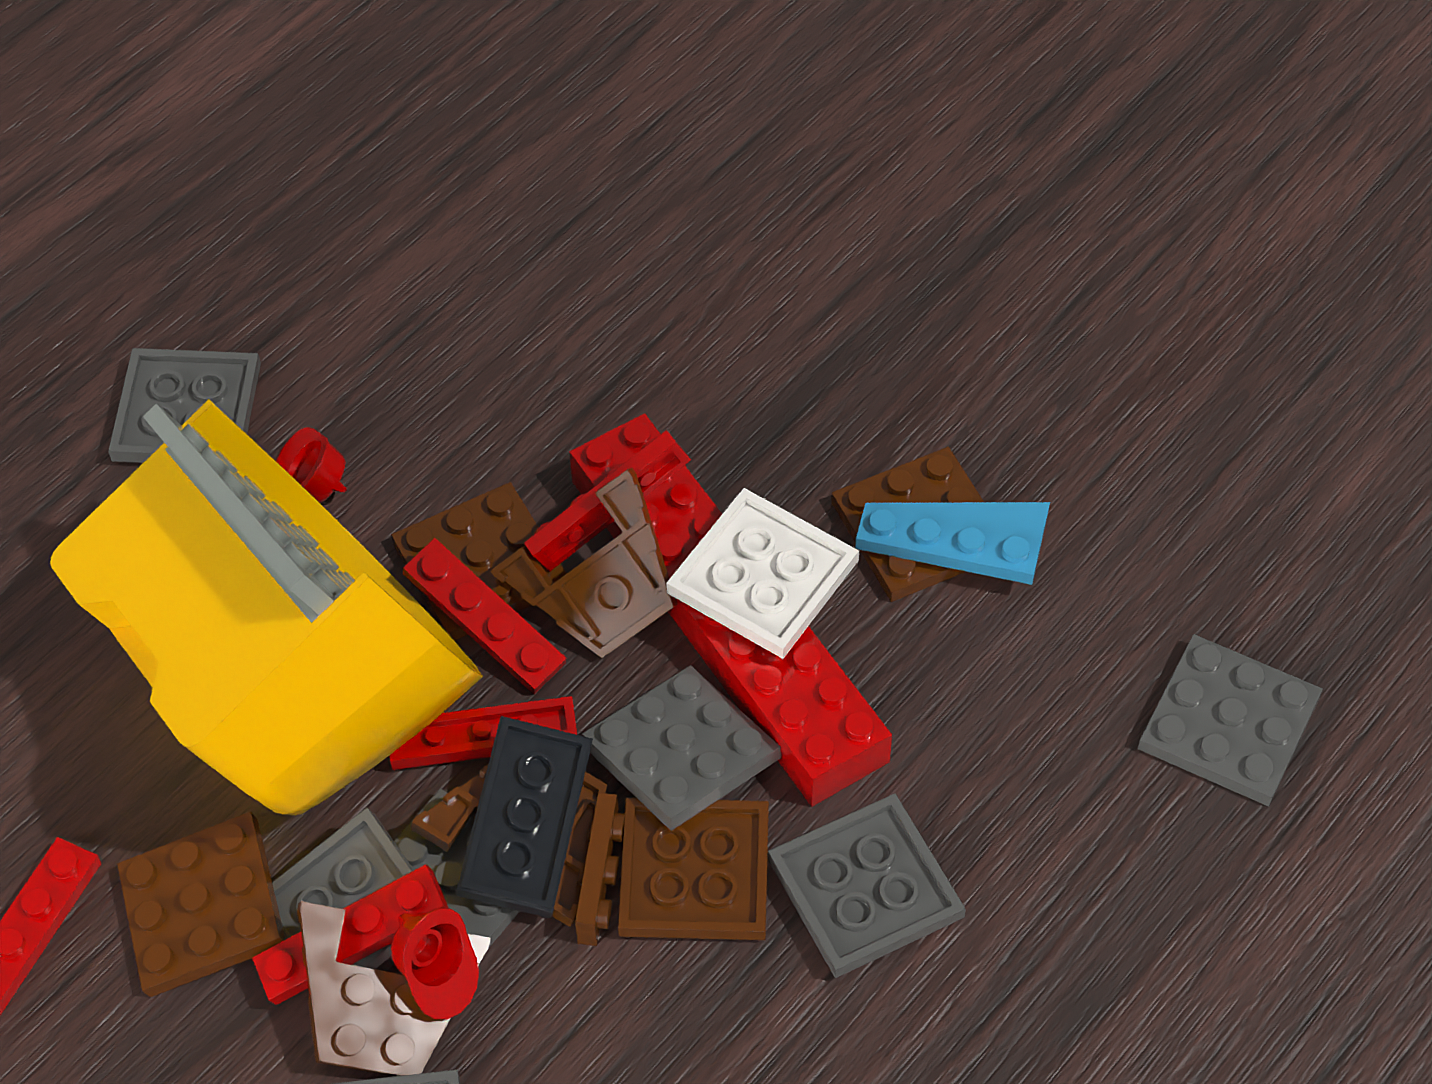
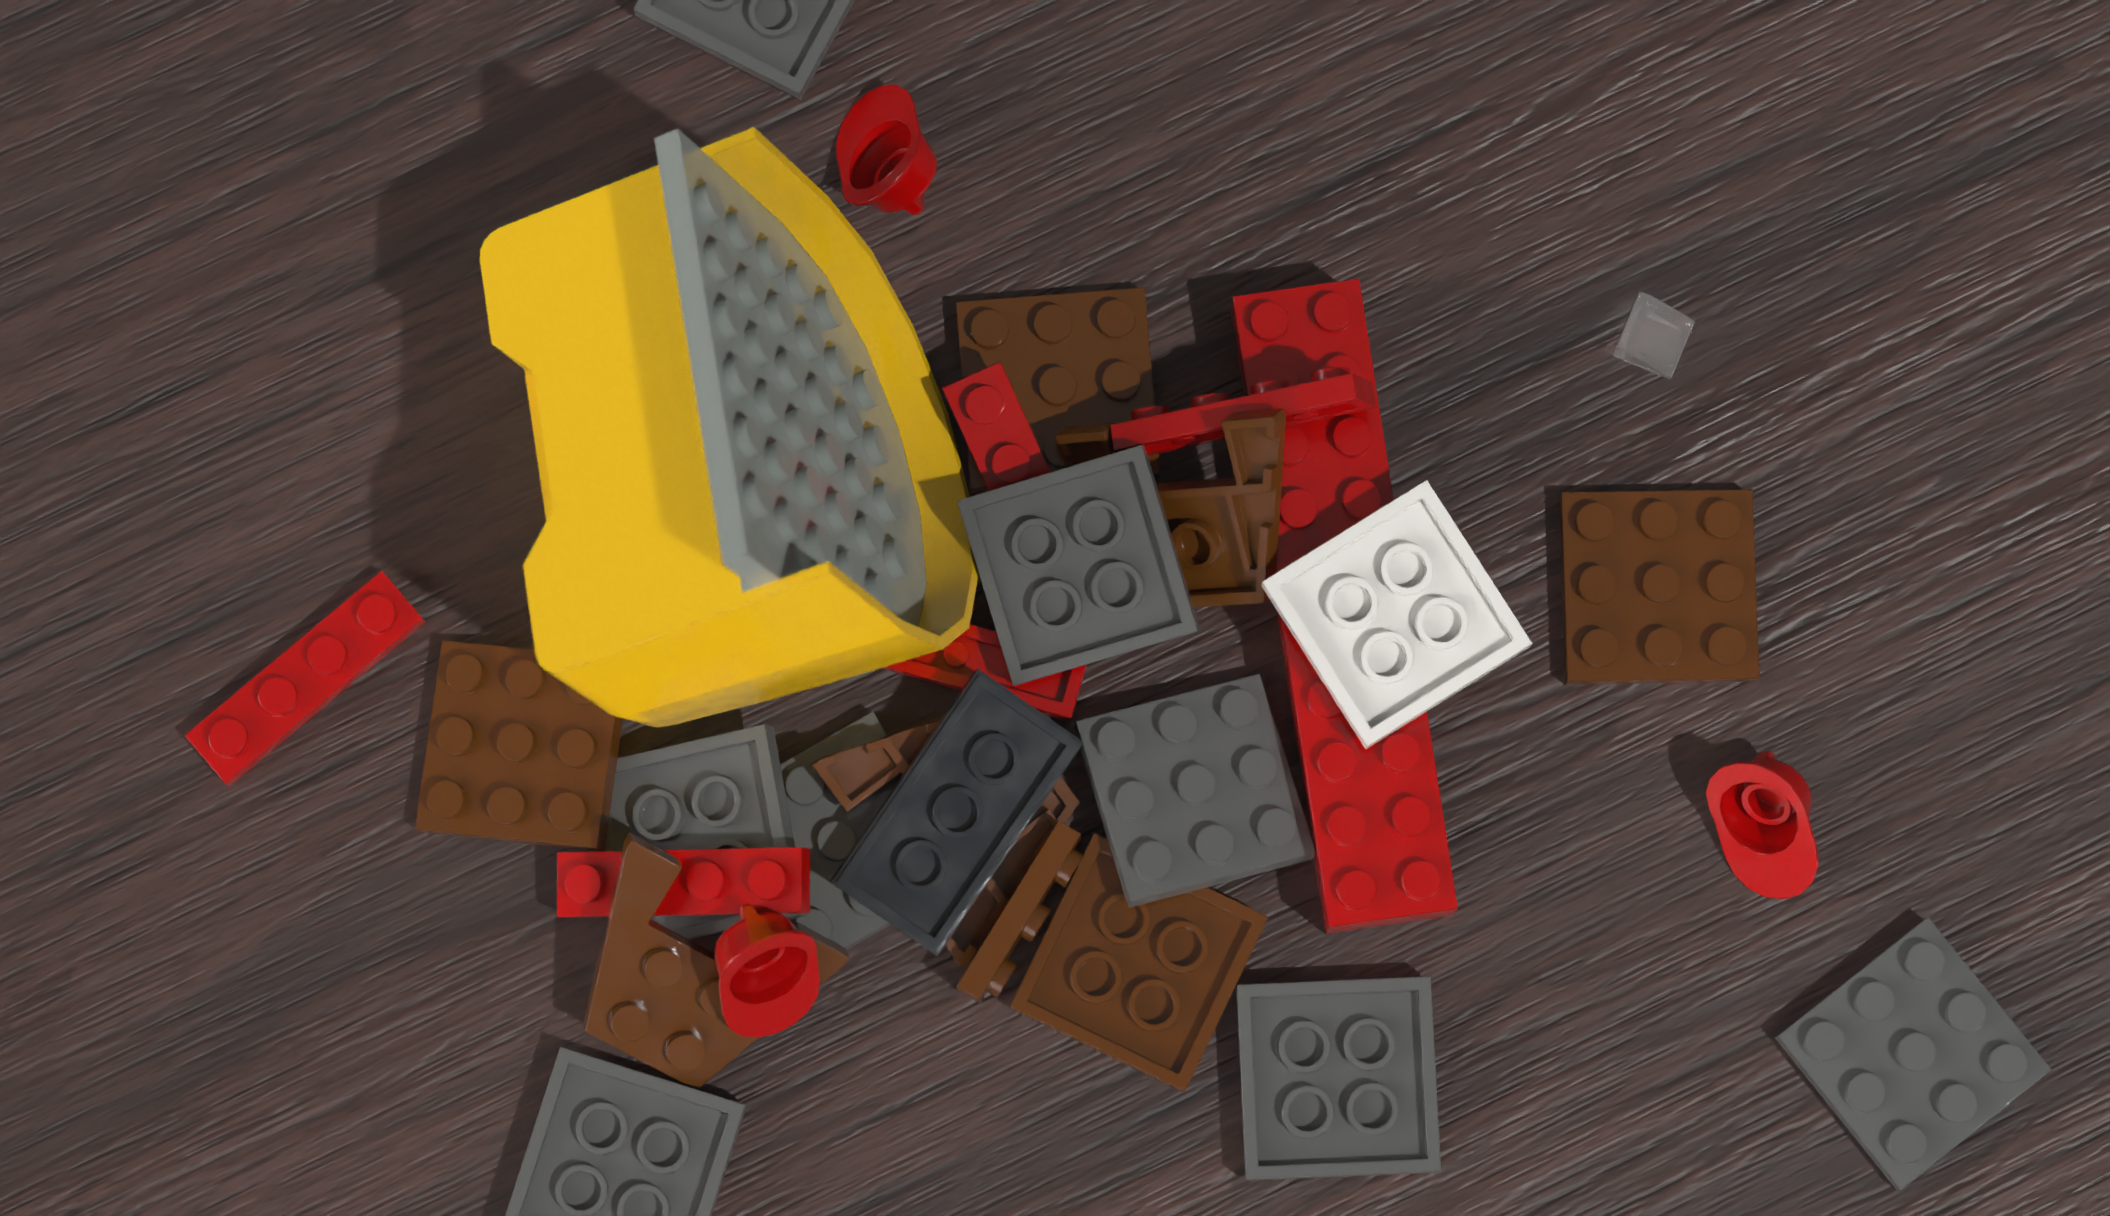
camera: 25 degrees right, 25 degrees up
(540, 631) = (1078, 565): none -> dark grey plate
(842, 392) = (1653, 336): none -> clear slope
(964, 536) = (1699, 650): dark azure wing -> none
(1061, 619) = (1765, 825): none -> red piece

